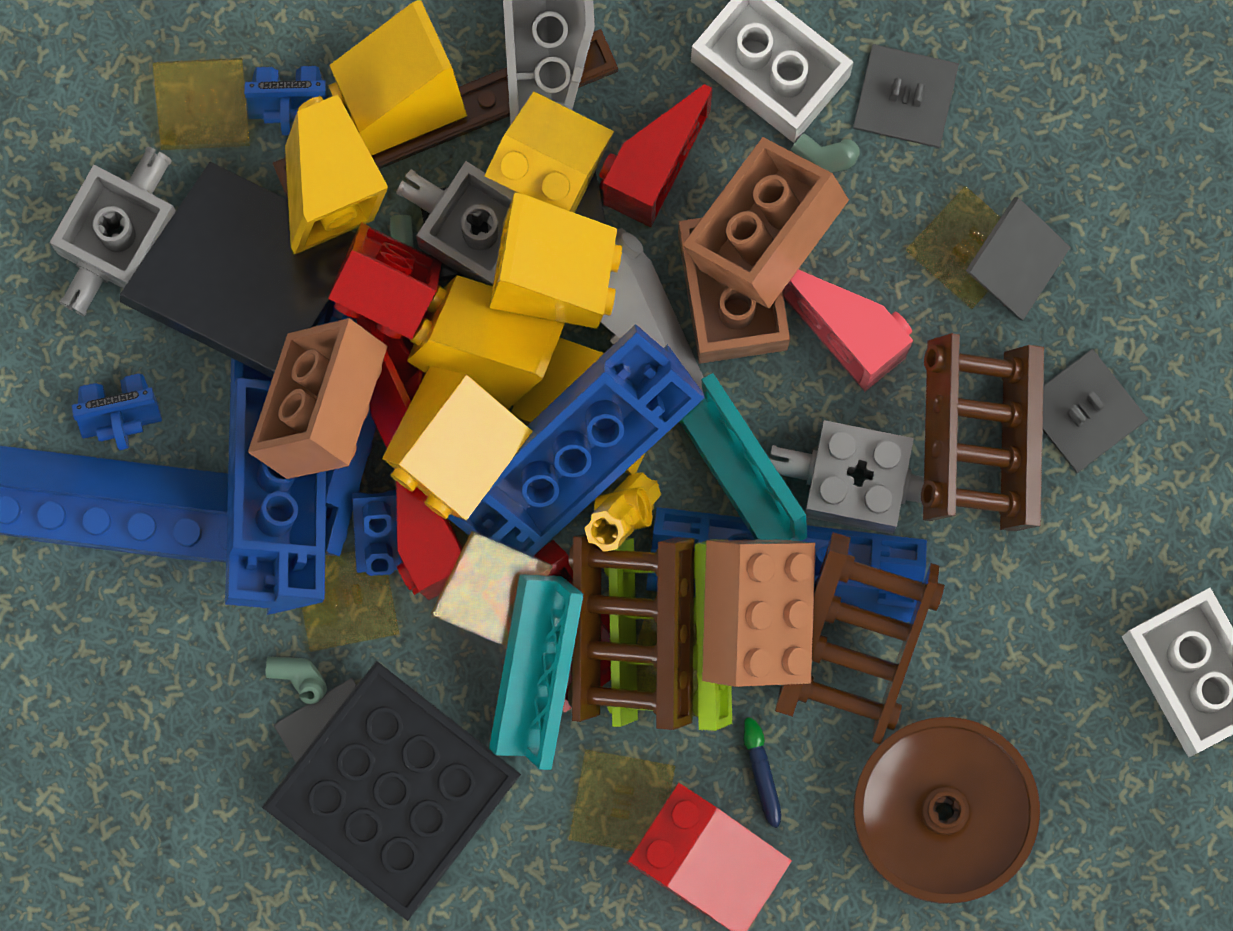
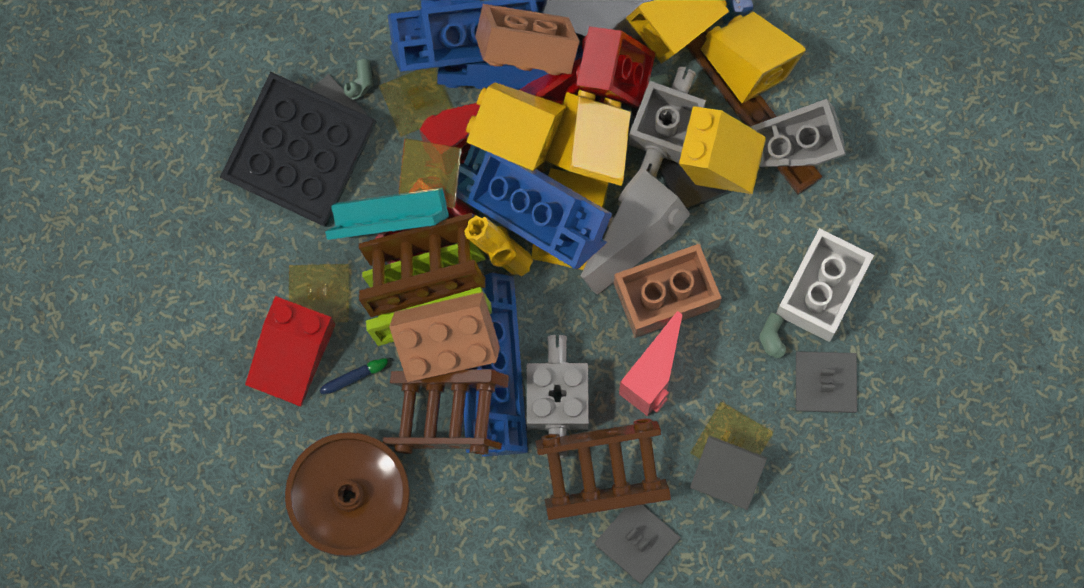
camera: 80 degrees right, 5 degrees down
(375, 532) = (459, 97): blue hips -> none
(554, 264) = (646, 162): yellow slope -> none
(650, 161) = (739, 223): red slope -> none
(743, 467) = (546, 319): teal fence -> none
(766, 222) = (705, 290): nougat brick -> none

